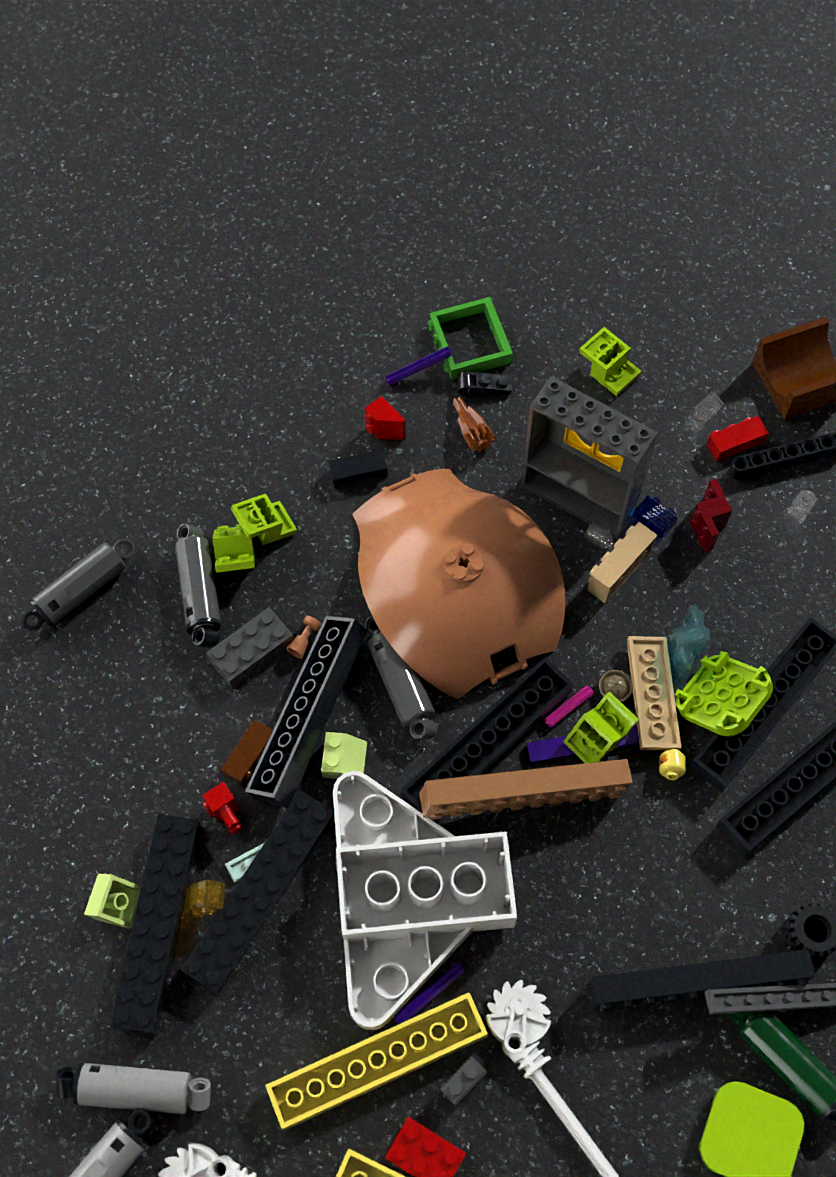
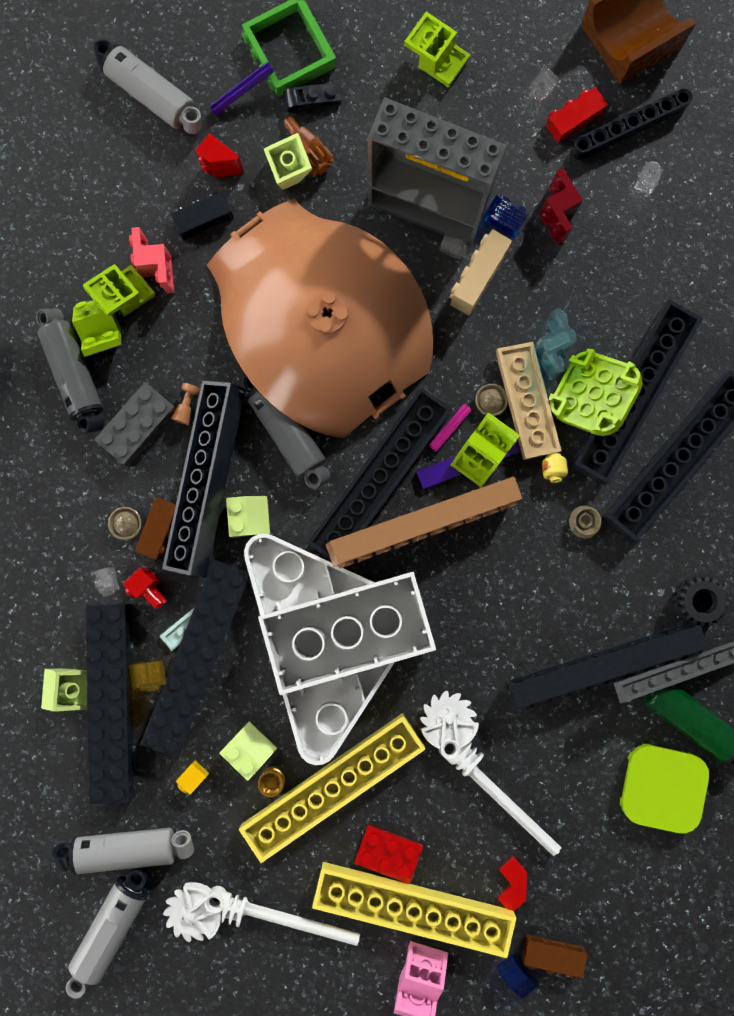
camera: 10 degrees left, 20 degrees up
(183, 795) = (106, 581): none -> clear brick
(216, 741) = (124, 523): none -> dark tan hat
(225, 1022) = (191, 778): none -> yellow brick
(293, 1004) = (248, 750): none -> yellowish green slope
(301, 499) = (152, 260): none -> coral bracket
(311, 1042) = (271, 781): none -> pearl gold wheel
(331, 351) = (147, 86): none -> light grey piece
(429, 994) = (367, 718): dark purple axle -> none
(451, 433) = (288, 161): none -> yellowish green slope
(463, 1081) = (410, 789): dark grey brick -> none
(698, 820) = (585, 521): none -> dark tan hat

